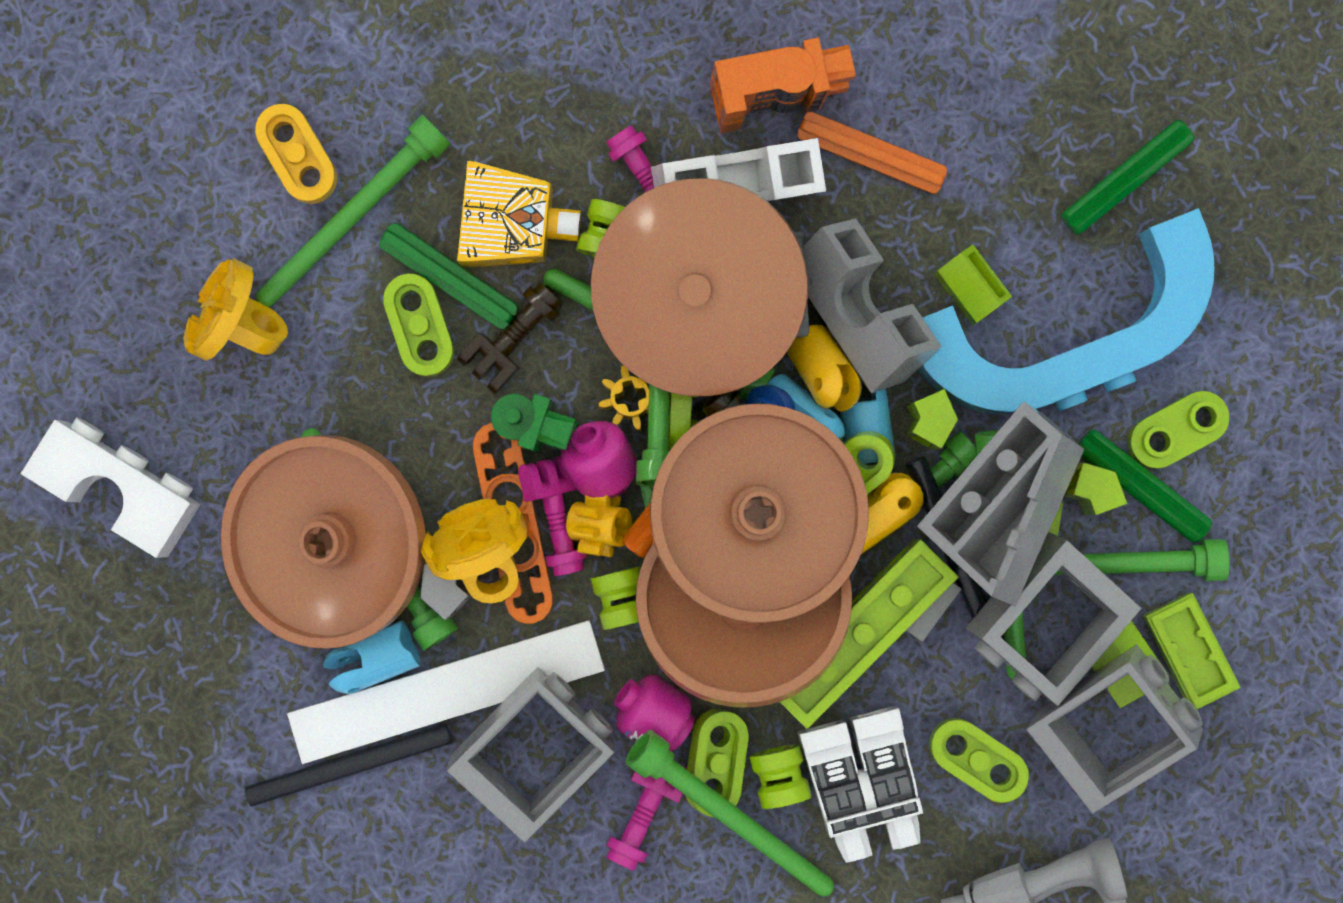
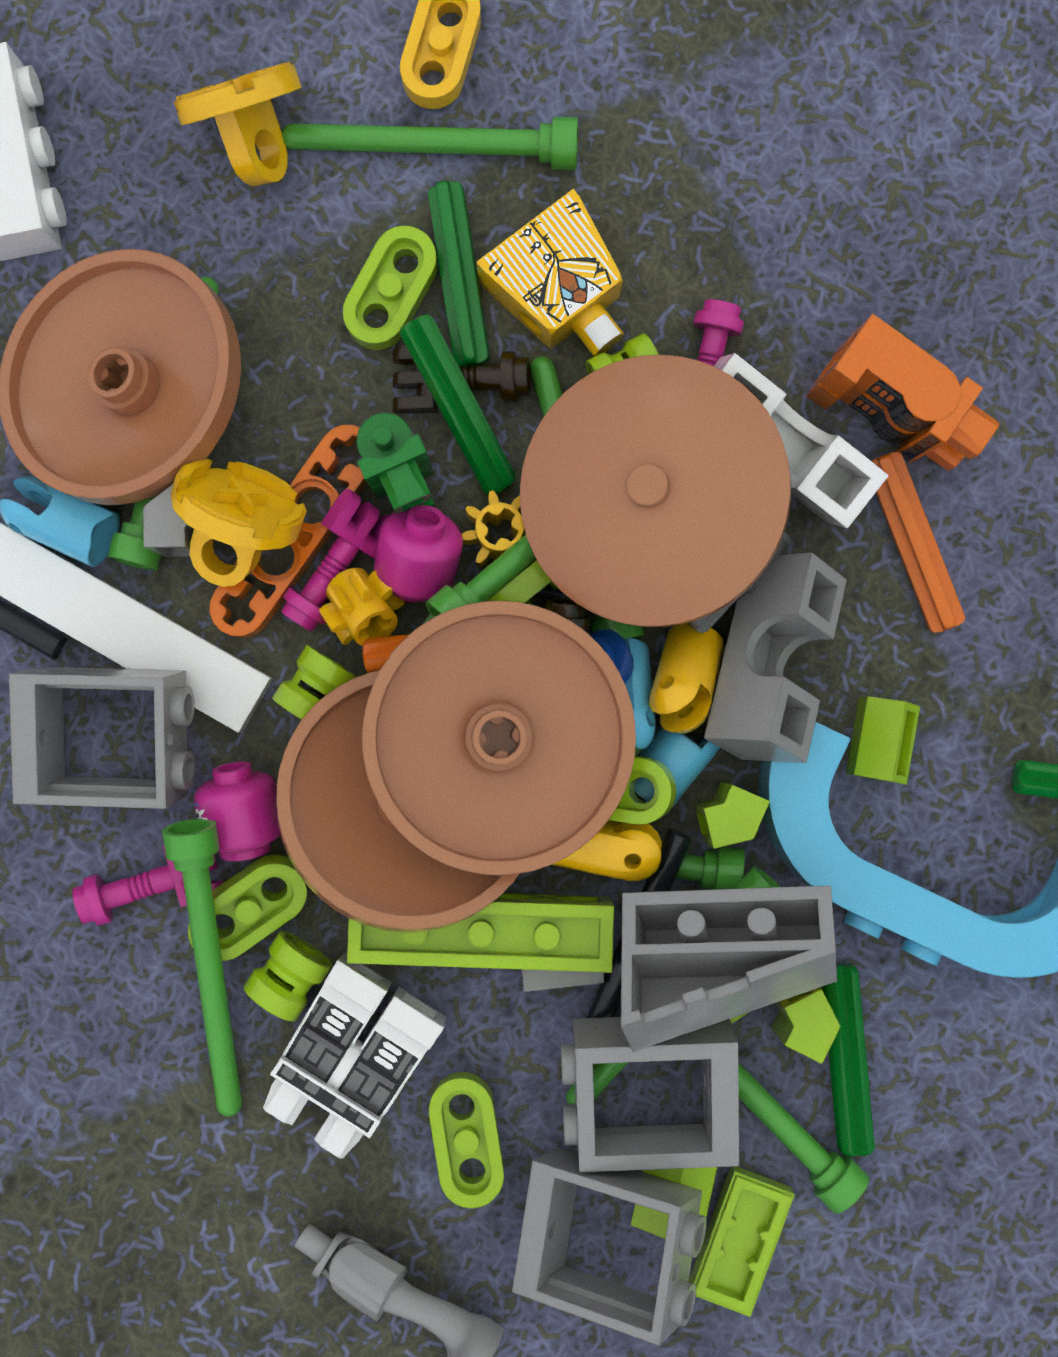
camera: 45 degrees right, 0 degrees up
(531, 351) = (457, 404): none -> green axle
(1179, 429) = (928, 1044): lime plate -> none

